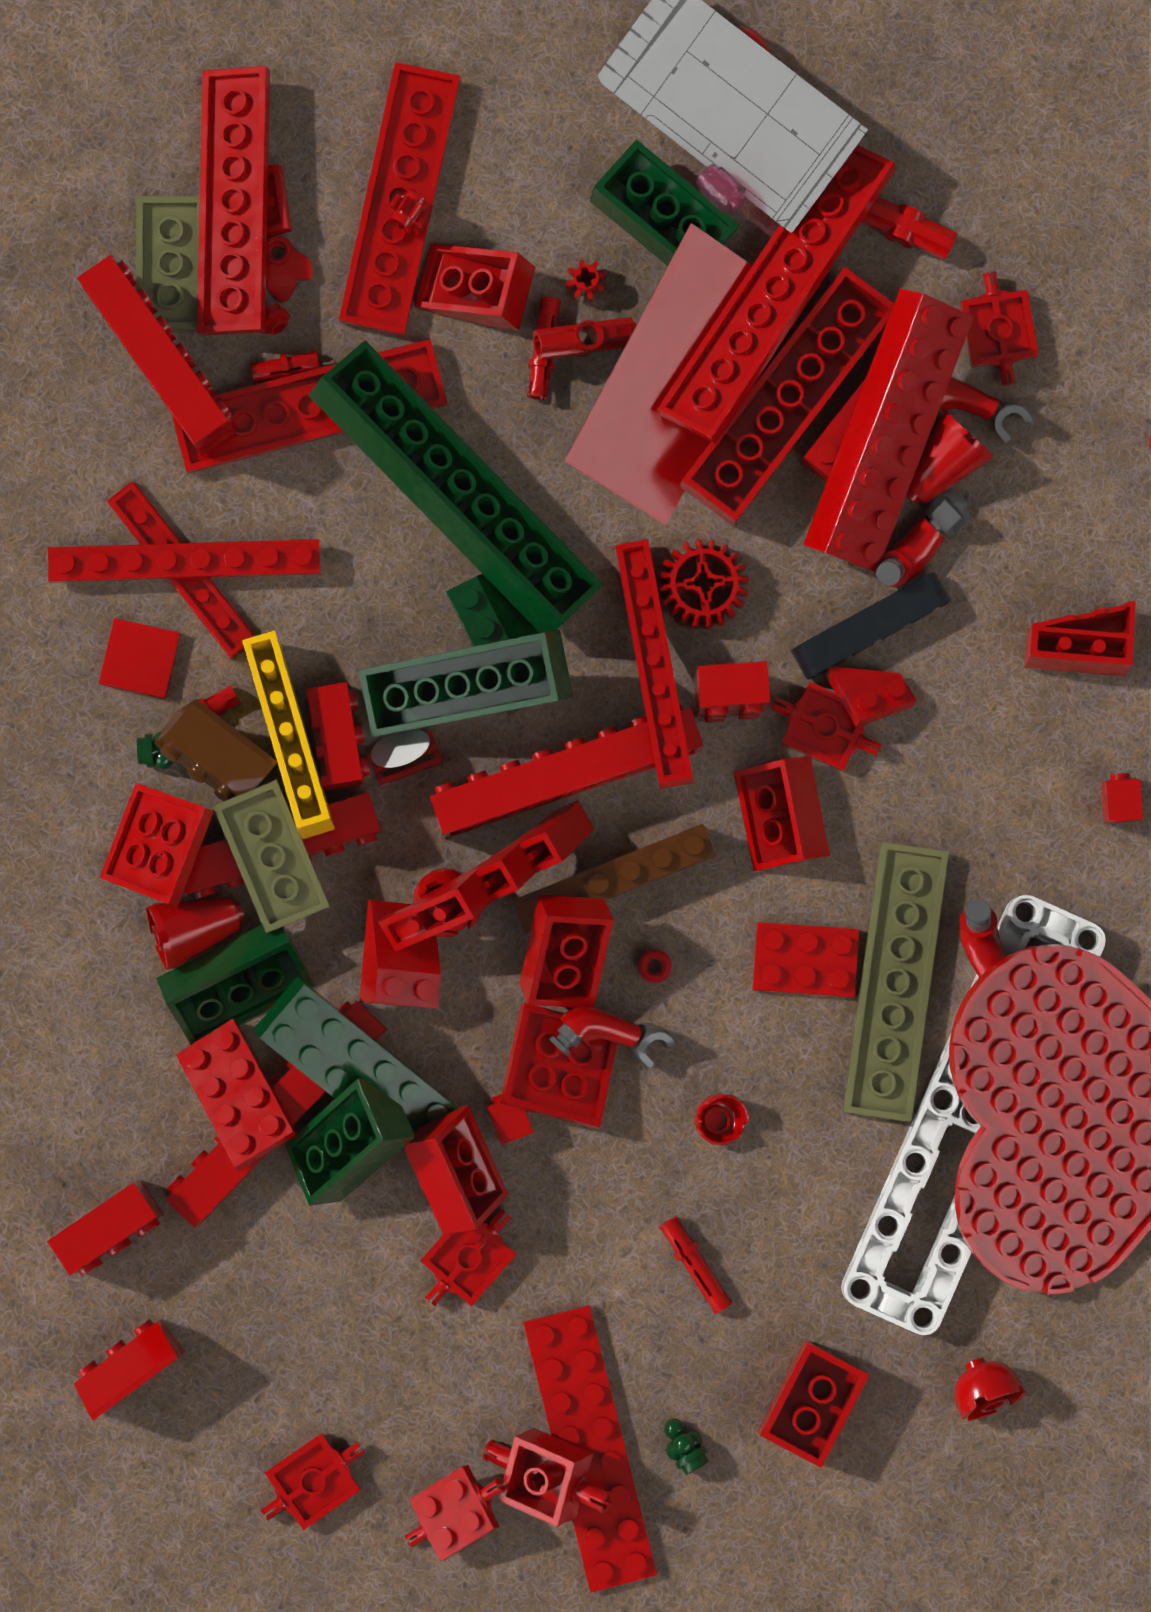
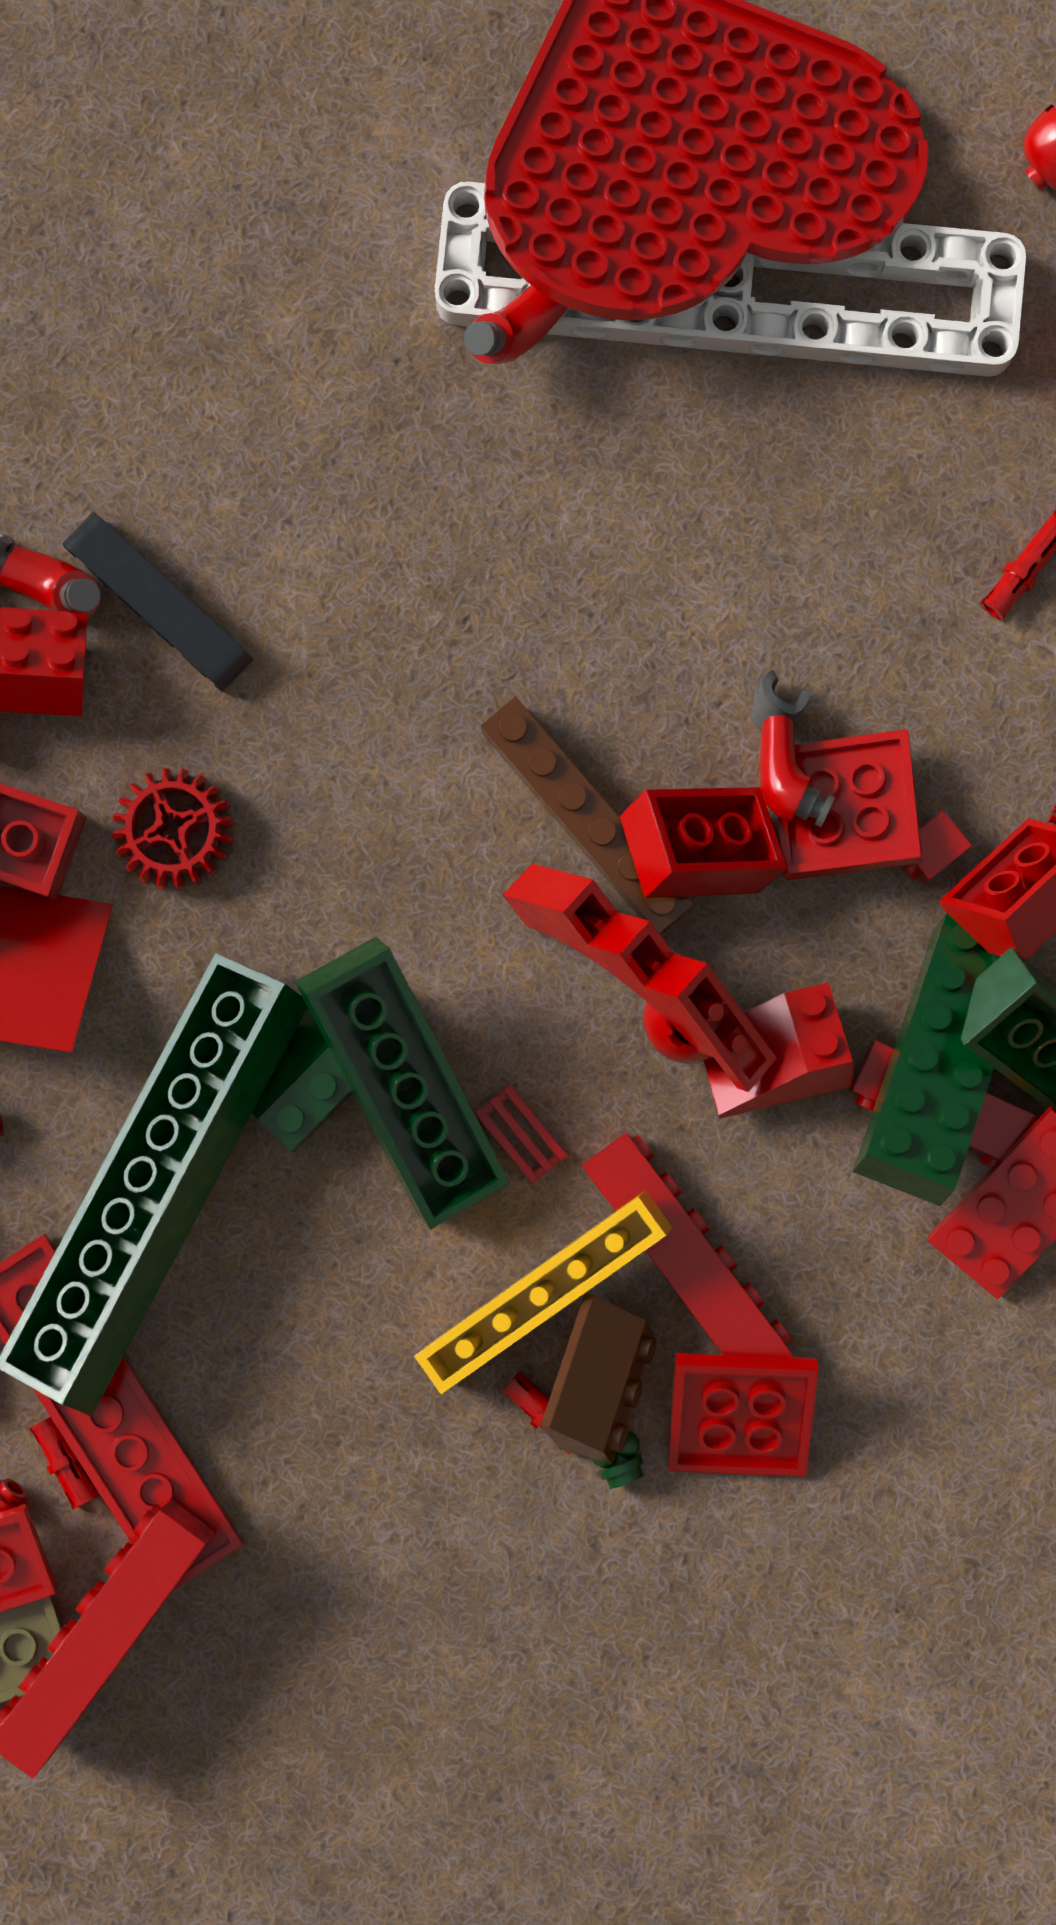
camera: 100 degrees left, 0 degrees up
(139, 658) = (505, 1522): red tile -> none
(184, 561) = (361, 1508): red plate -> none
(191, 927) = (831, 1332): red cone -> none
(198, 593) = (371, 1508): red tile -> none
(232, 981) = (879, 1256): dark green slope -> none
(271, 856) = (708, 1260): olive plate -> none
(337, 736) = (522, 1229): red wedge -> none
(400, 748) = (513, 1143): white sticker -> none
(551, 776) = (472, 917): red brick -> none
(654, 664) = (299, 849): red plate -> none
(663, 958) = (682, 718): red plate -> none
(709, 1119) = (849, 600): red hair -> none
(731, 690) = (296, 737): red brick -> none
(782, 813) = (433, 635): red slope -> none
(805, 959) = (606, 548): red plate -> none
(823, 728) = (304, 616): red plate -> none
(870, 693) = (244, 574): red wing -> none
(895, 981) = (597, 427): olive plate -> none
(1084, 643) = (93, 325): red wedge -> none
(1121, 799) = (275, 222): red brick -> none

